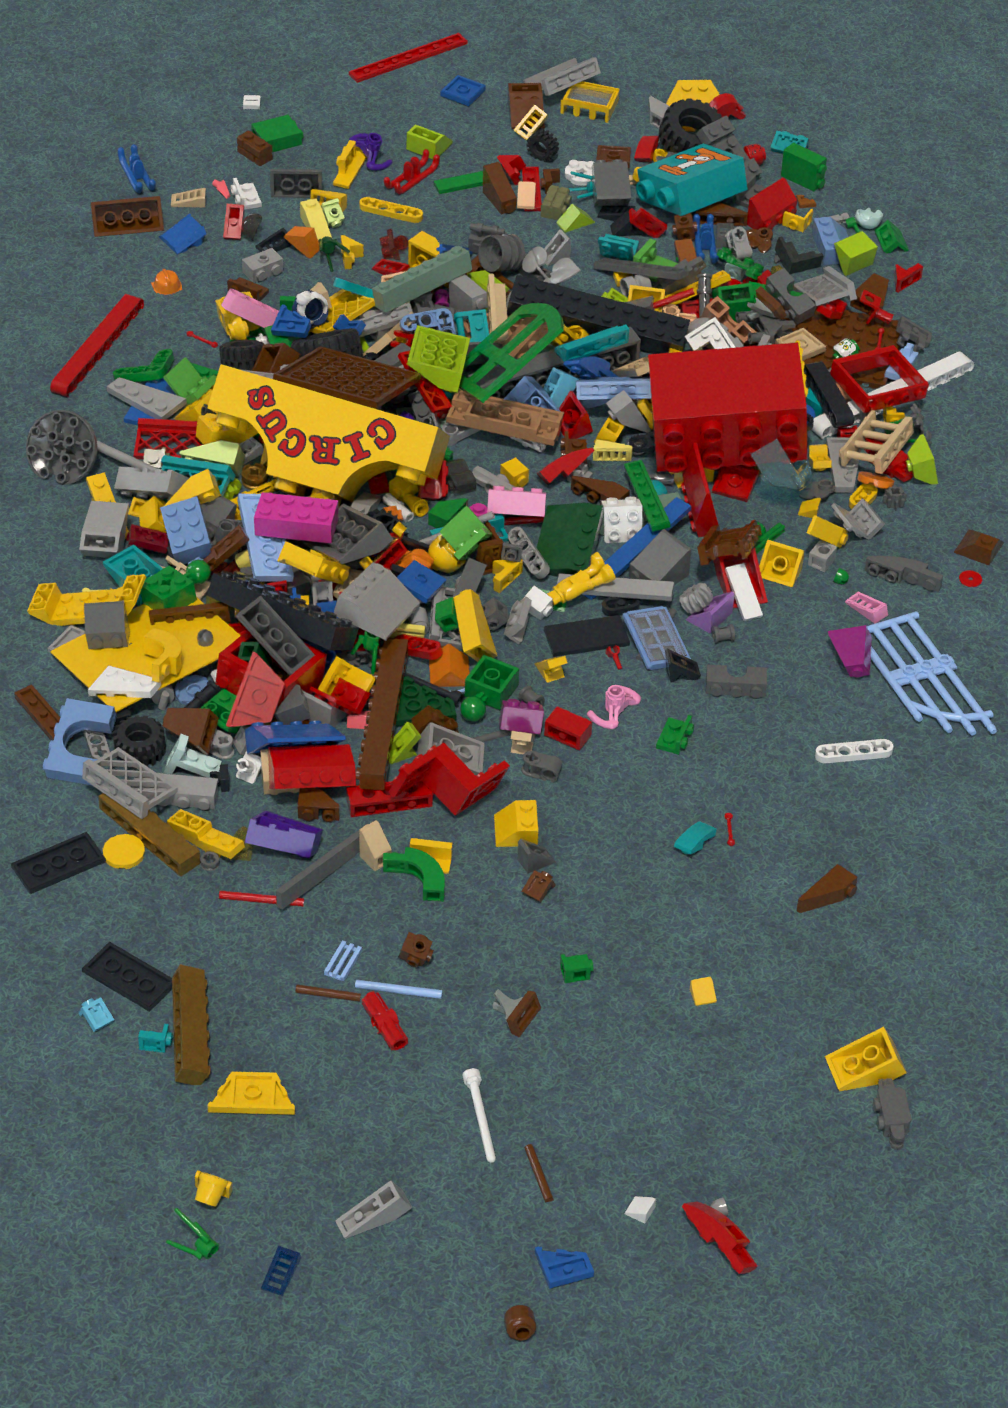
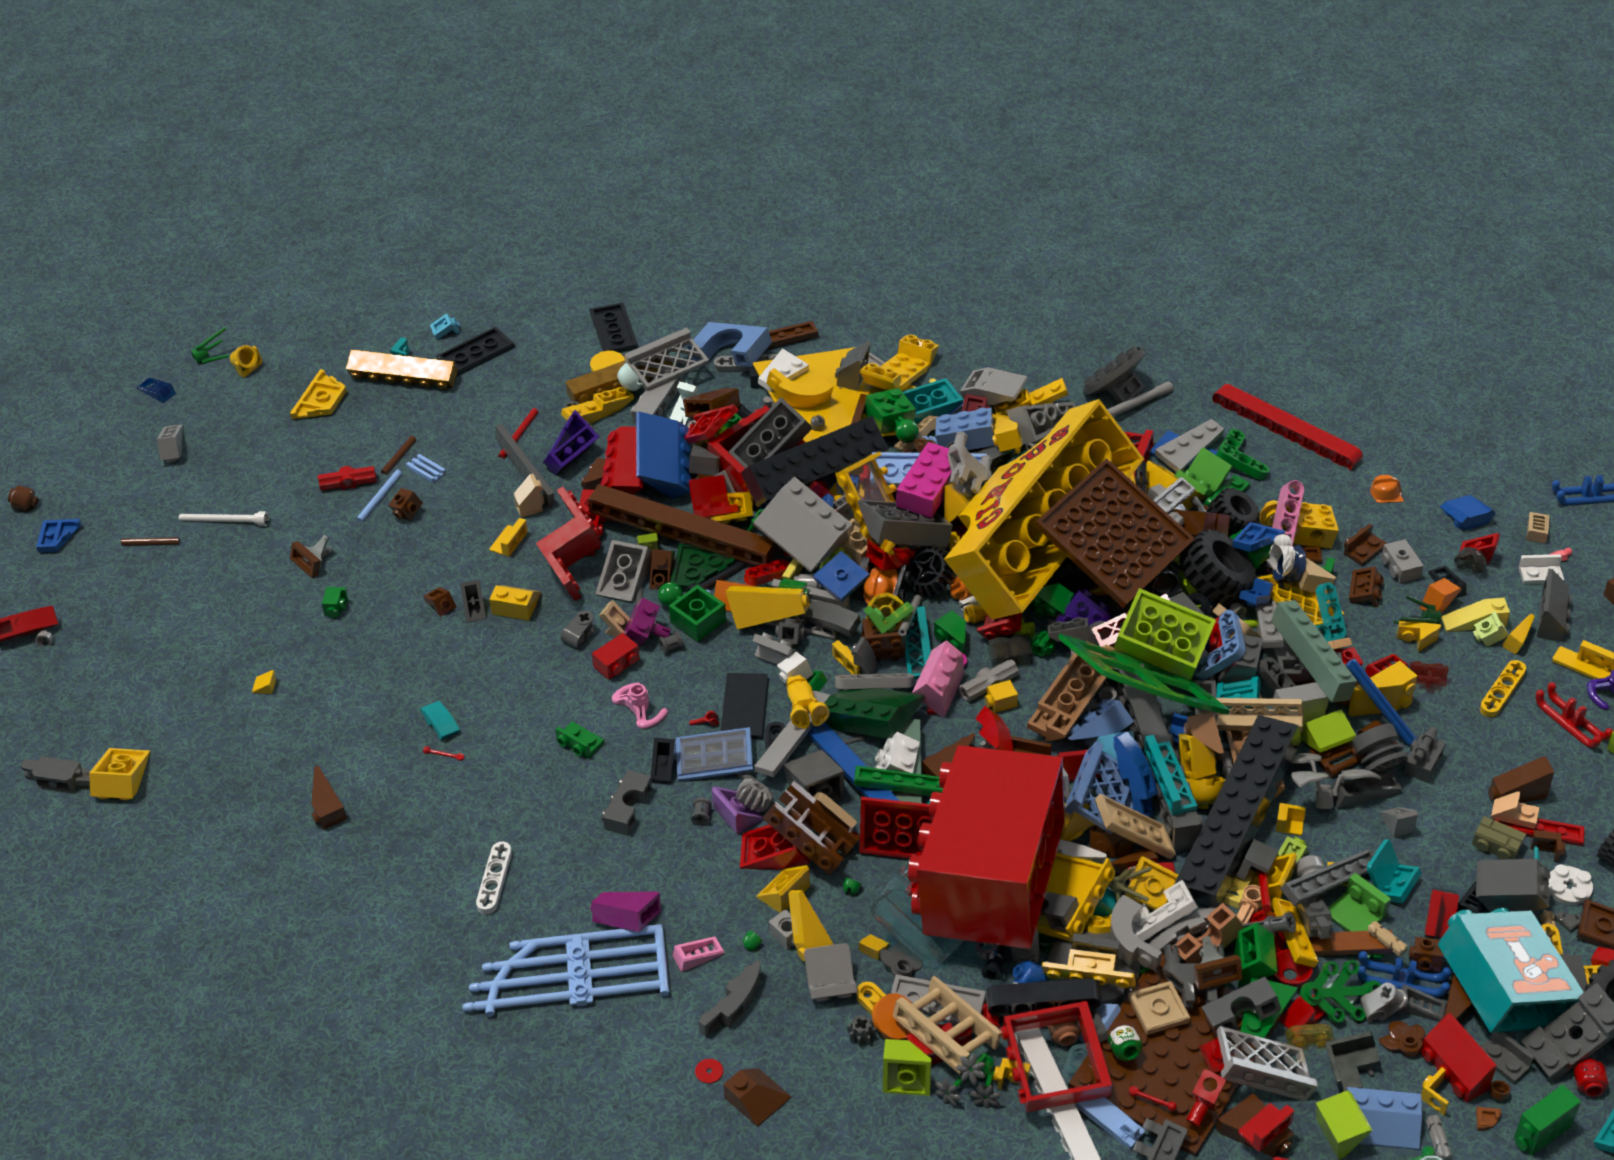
camera: 110 degrees right, 0 degrees up
(127, 216) = (1504, 471): reddish brown slope -> none
(144, 730) = (720, 375): black tyre -> none
(168, 803) = (628, 378): none -> light aqua hair
(280, 485) = (967, 467): none -> light grey connector
(296, 283) = (1366, 586): none -> reddish brown bracket
(421, 866) = (491, 528): green arch -> none
(459, 182) = (1563, 781): green tile -> none
(512, 165) = (1573, 809): red slope -> none
(551, 668) = (705, 663): yellow slope -> none
(574, 218) = (1466, 854): lime slope -> none
(641, 1208) = (76, 592): white slope -> none
(686, 239) = (1387, 938): none -> tan axle
(700, 534) = (835, 809): none -> tan tile
(744, 592) = (746, 839): white tile -> none
(771, 535) = (836, 891): green axle -> none
(819, 457) = (952, 974): yellow bracket -> none
(879, 279) = (1266, 1126): none -> red panel

